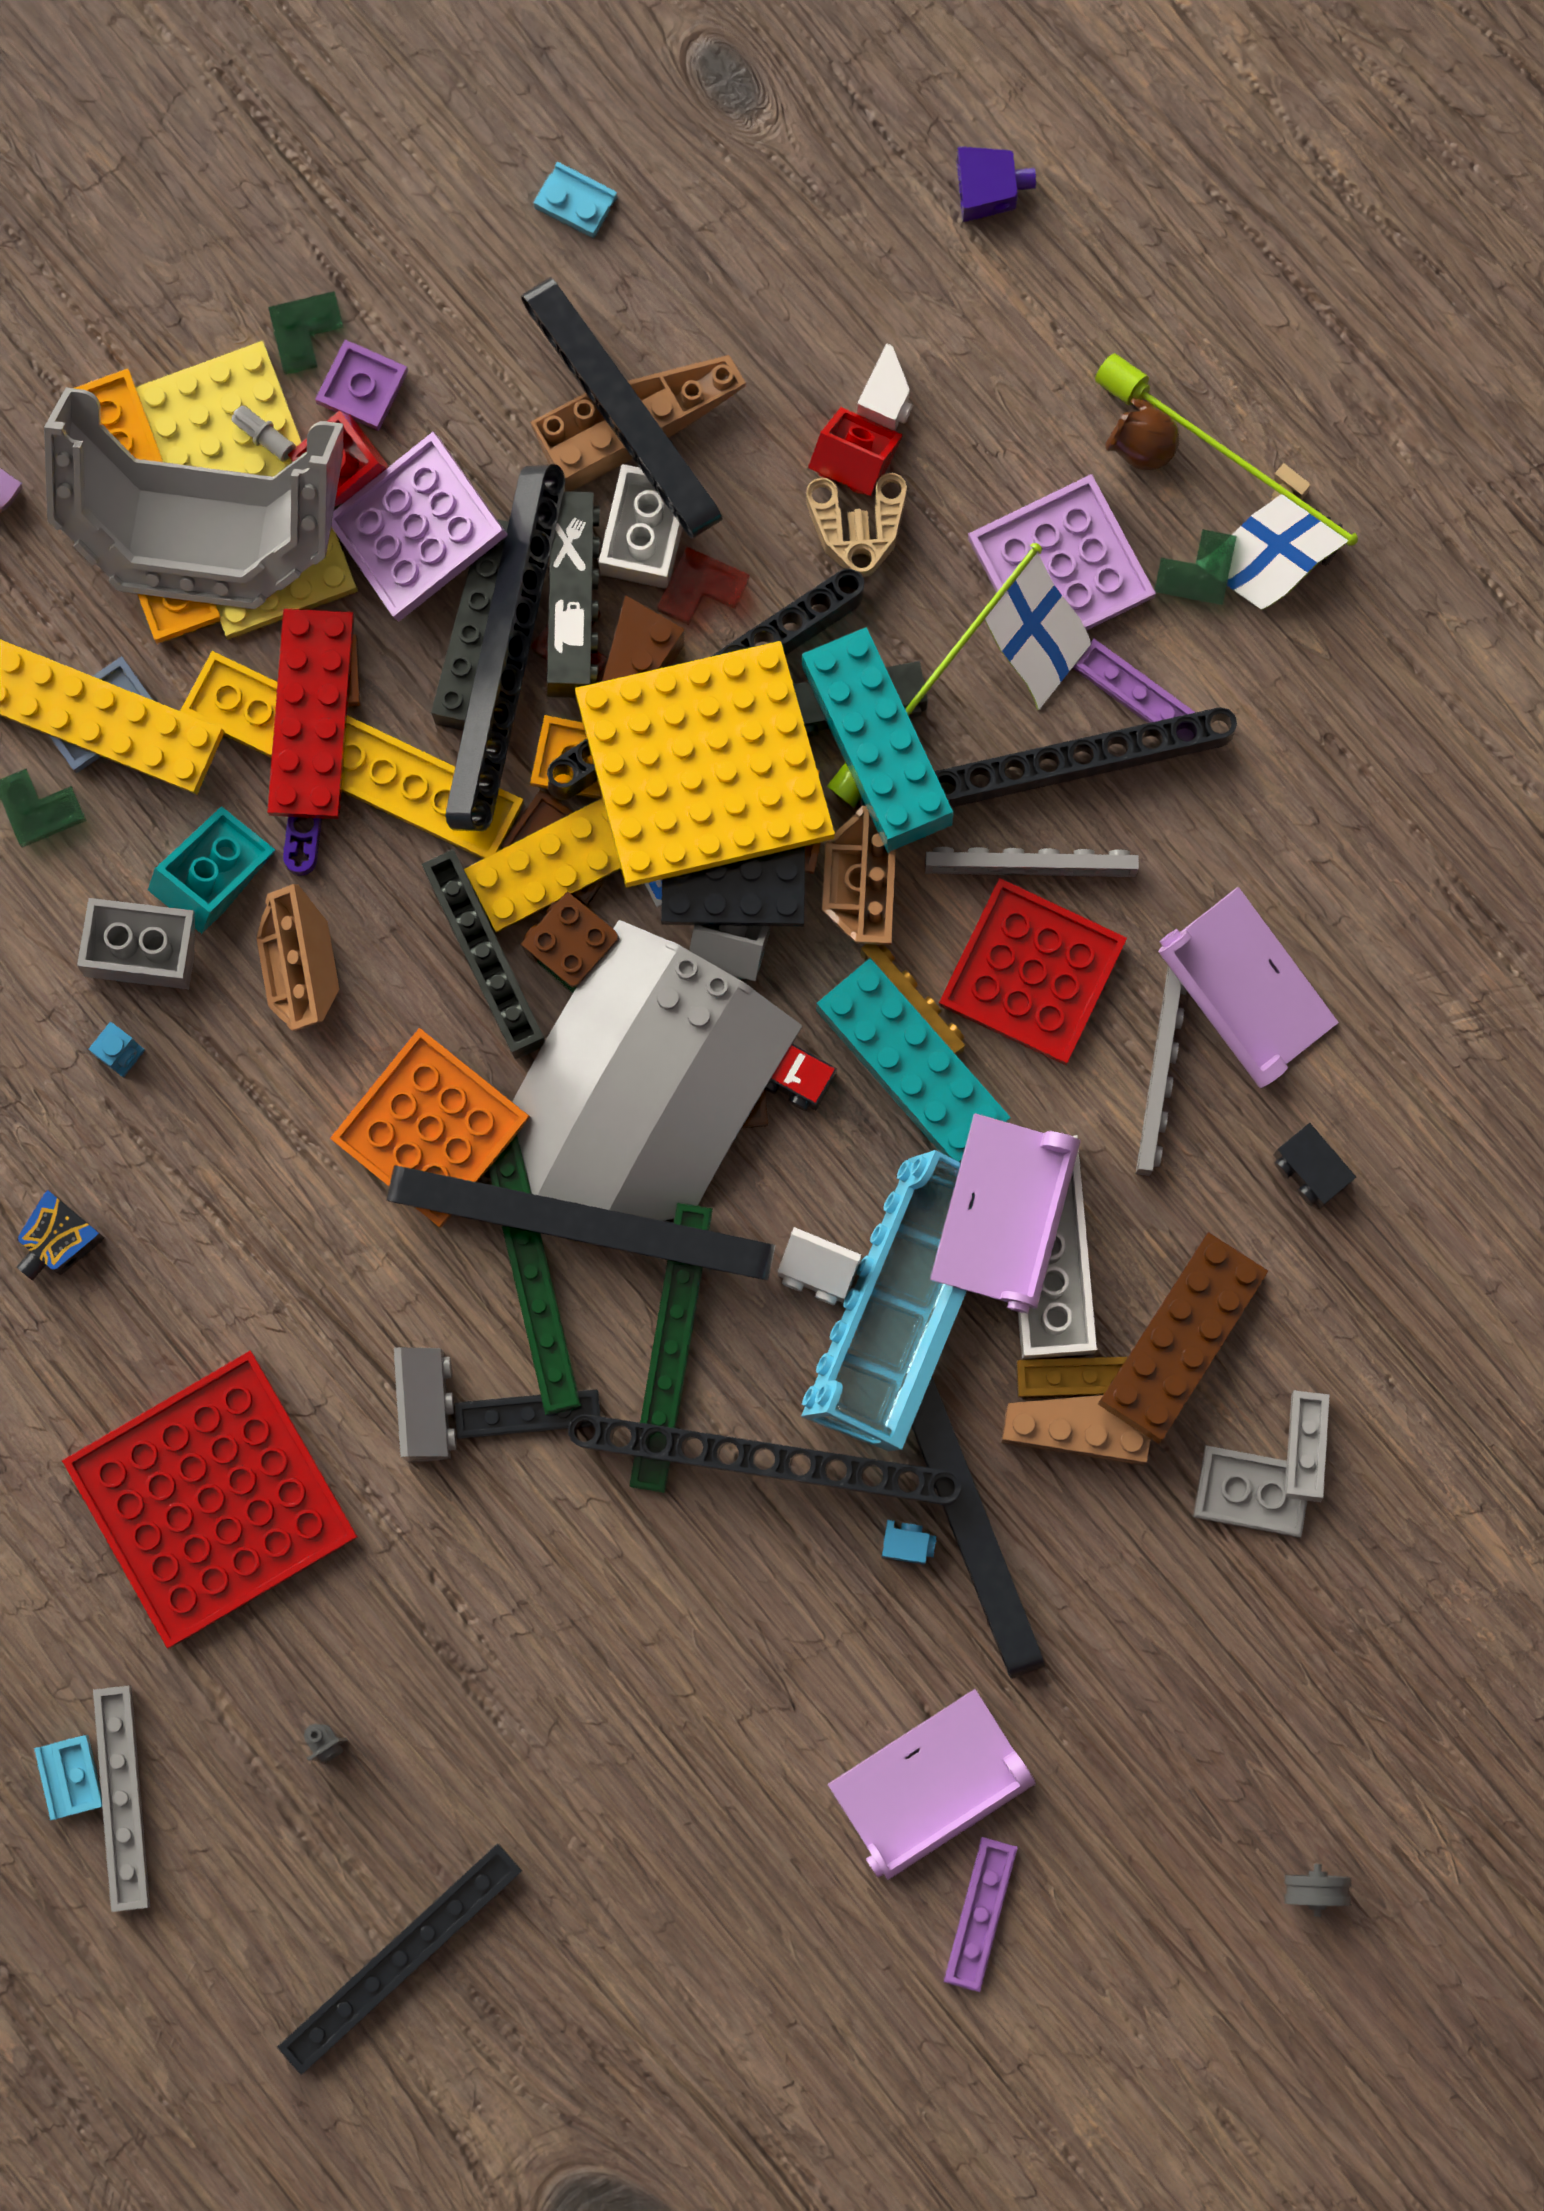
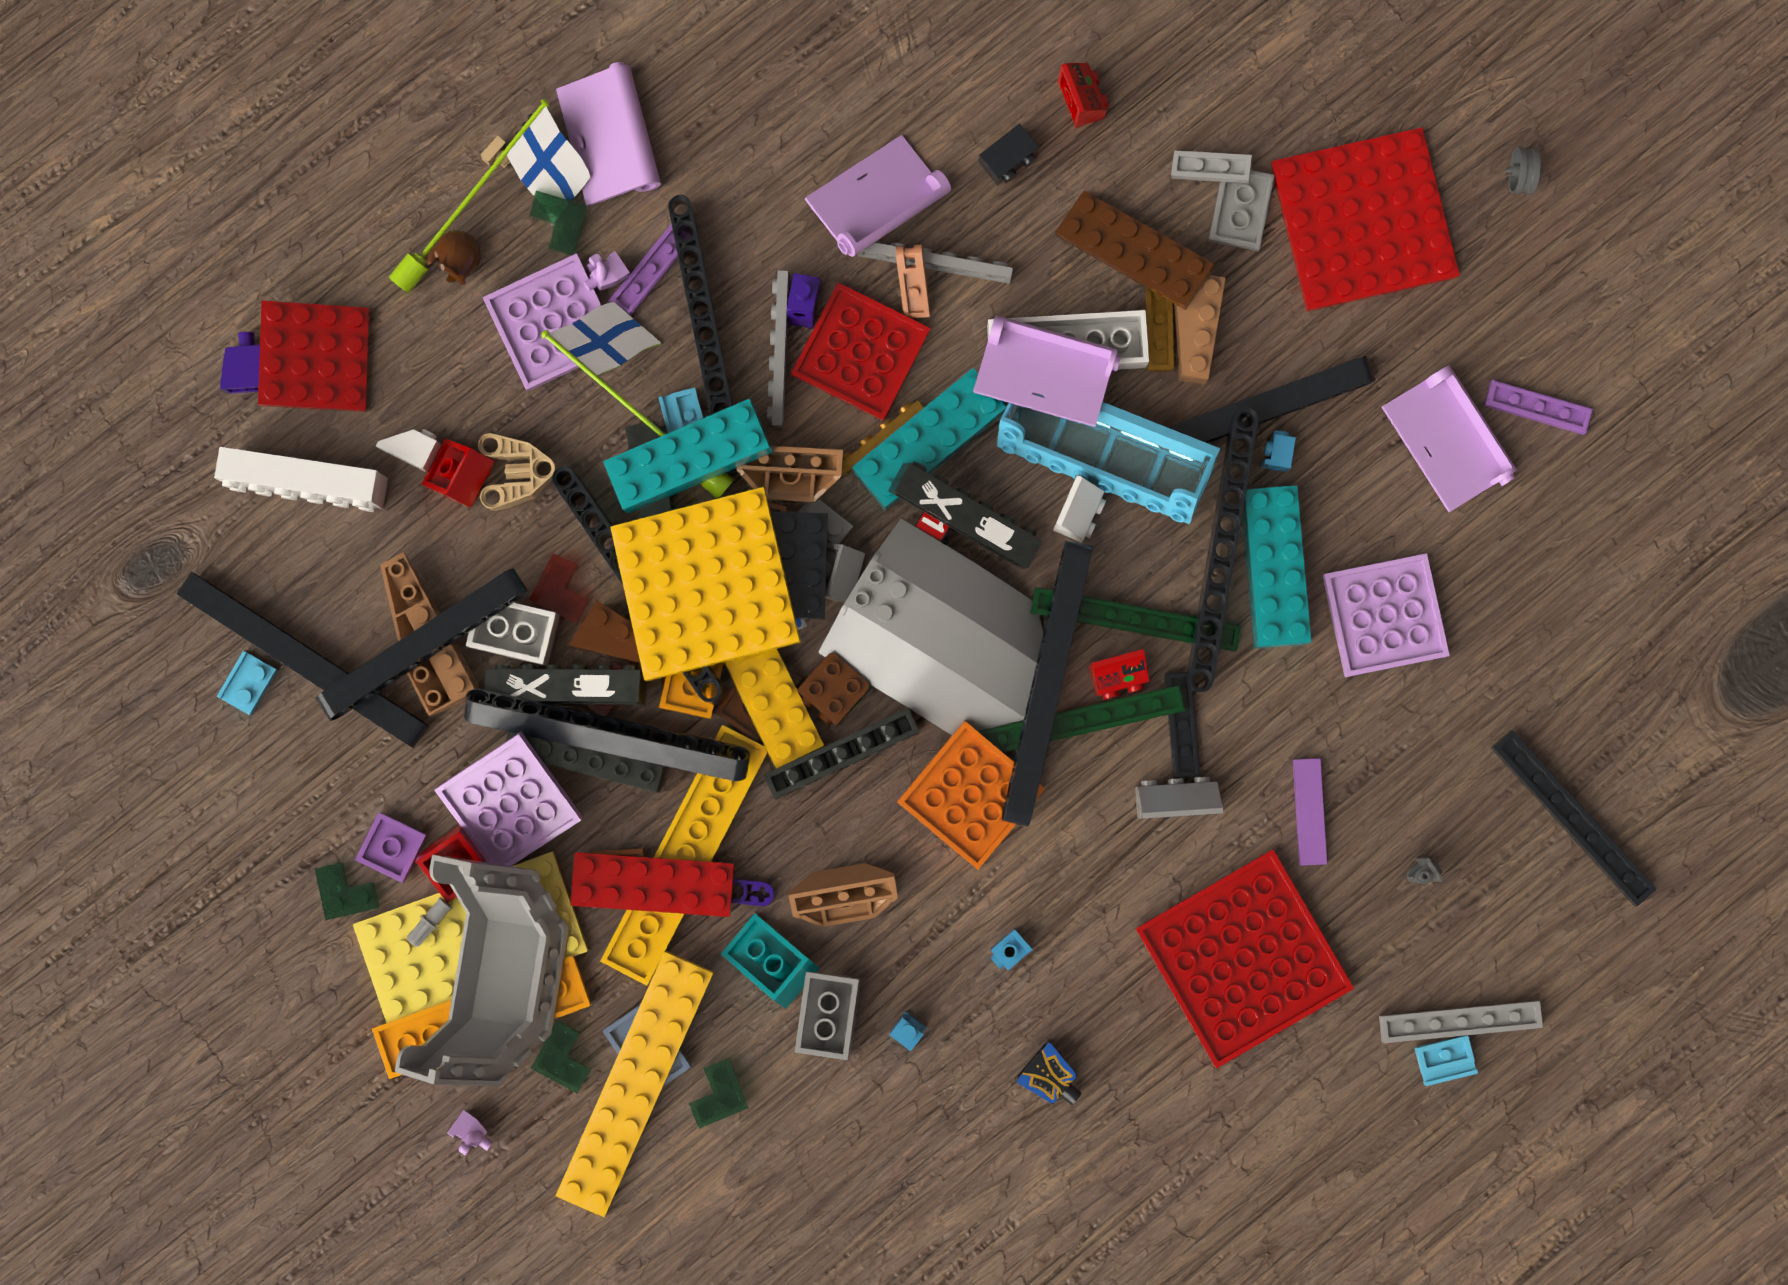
camera: 90 degrees left, 5 degrees up
(86, 598) = (555, 1062): none -> clear green plate
(230, 1193) = (1013, 940): none -> dark azure brick
(409, 1589) = (1309, 812): none -> medium lavender tile
(594, 1323) = (1118, 674): none -> red slope
(610, 258) = (296, 655): none -> black beam
(681, 1694) = (1385, 615): none -> lavender plate
(744, 1537) = (1275, 568): none -> teal brick
(793, 943) = (837, 526): none -> light grey plate
(806, 1108) = (965, 515): none -> pearl dark grey brick
(839, 252) = (301, 478): none -> white brick
(945, 736) = (680, 409): none -> medium azure plate
(1005, 262) = (313, 356): none -> red plate
(1101, 892) = (803, 300): none -> dark purple torso
(1127, 631) = (605, 274): none -> lavender piece
(1128, 1036) = (913, 282): none -> nougat plate
(1242, 1666) = (1364, 219): none -> red plate
(1322, 632) = (611, 121): none -> lavender door
(1404, 1265) = (1081, 93): none -> red slope

